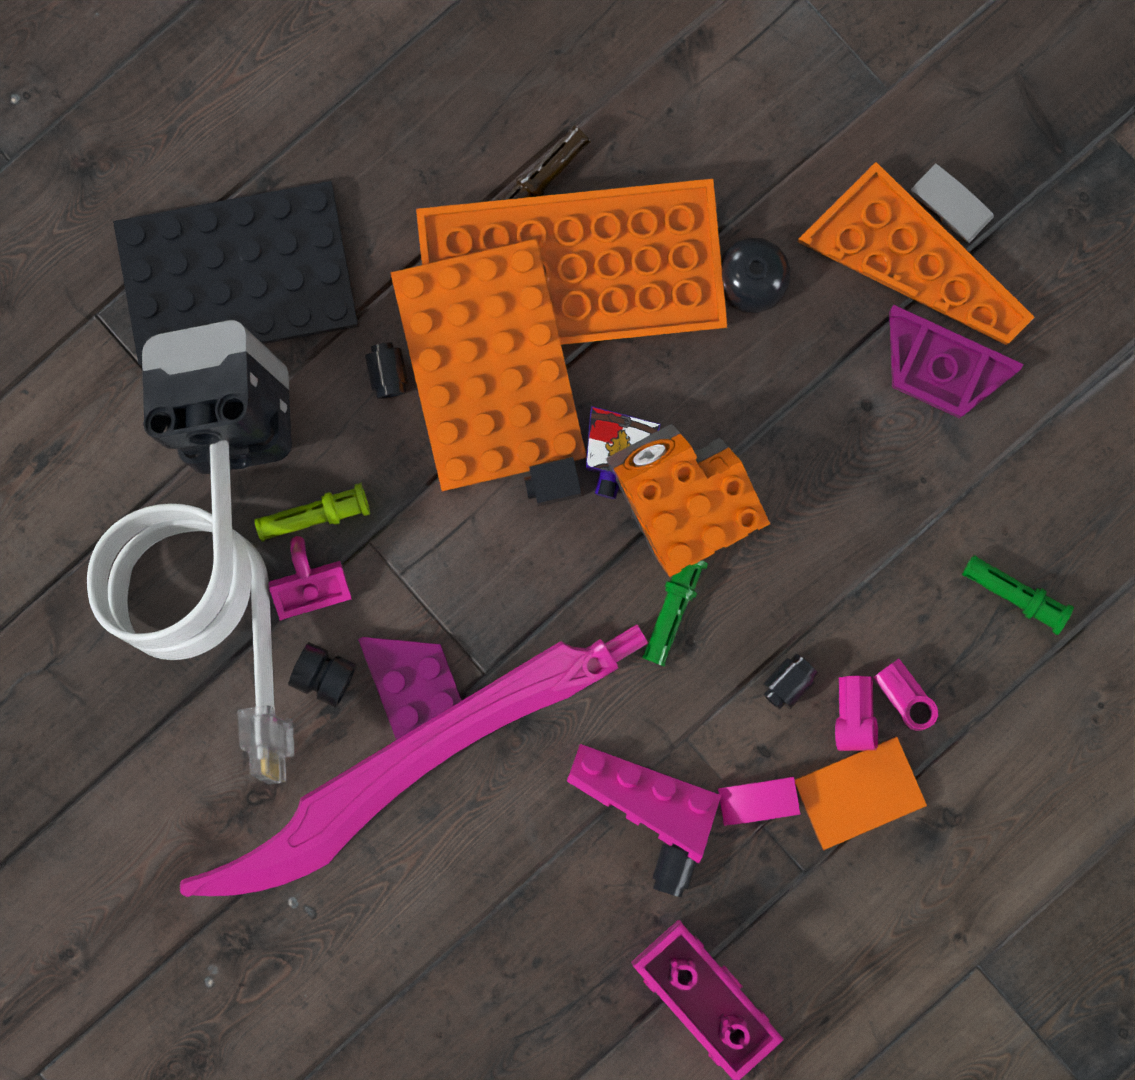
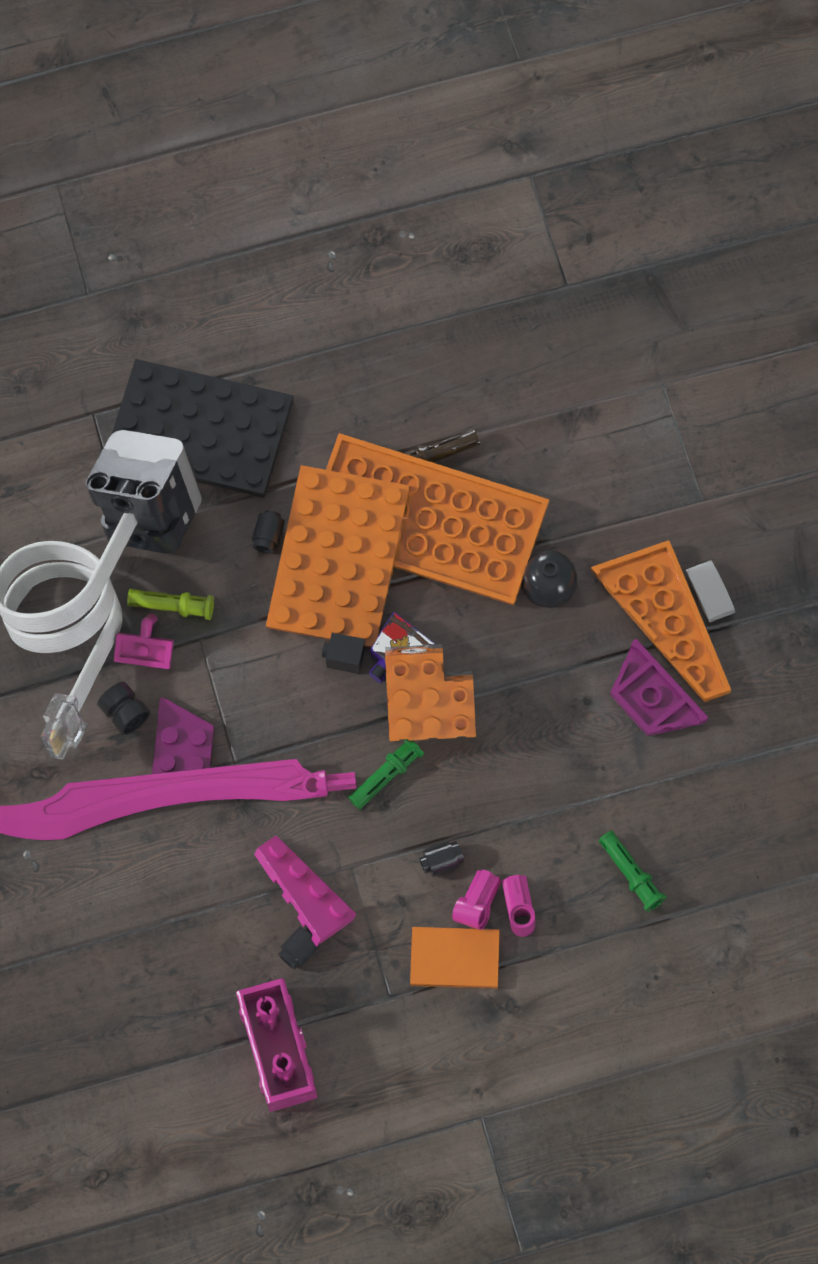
camera: 30 degrees right, 15 degrees down
(759, 801) = (381, 929): dark pink slope -> none

